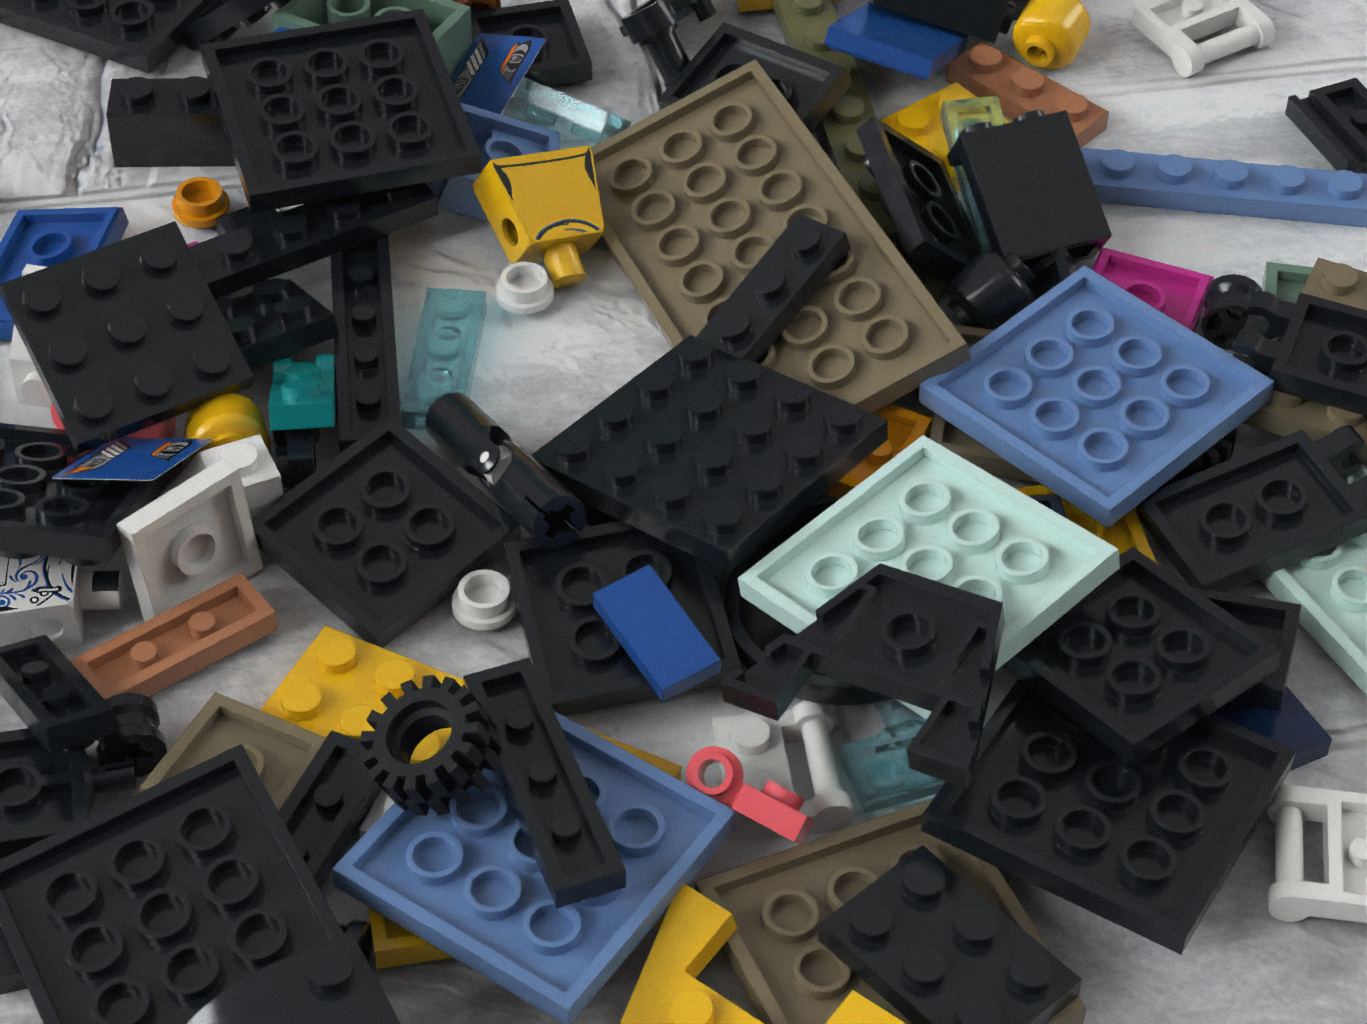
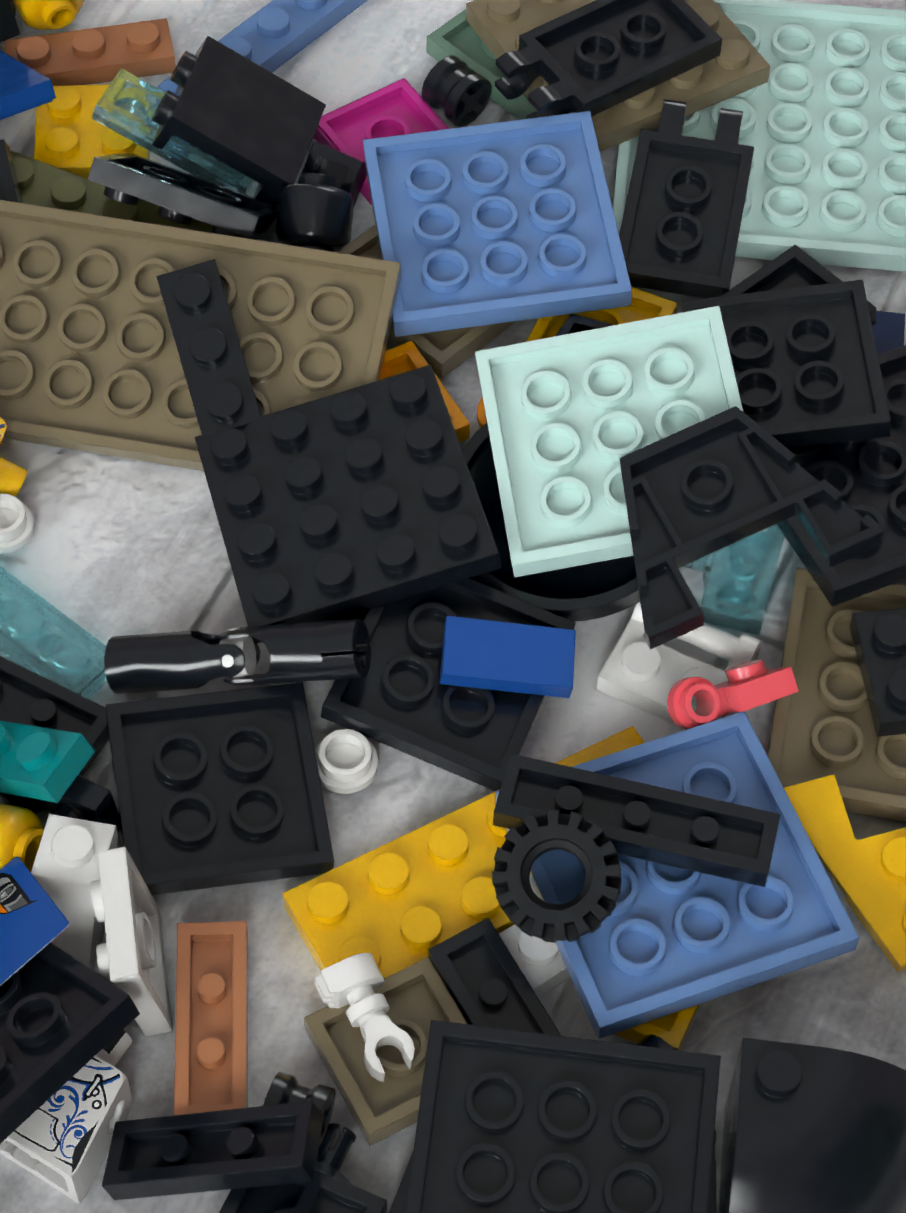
camera: 55 degrees left, 10 degrees up
(257, 697) = (355, 983): none -> white piece

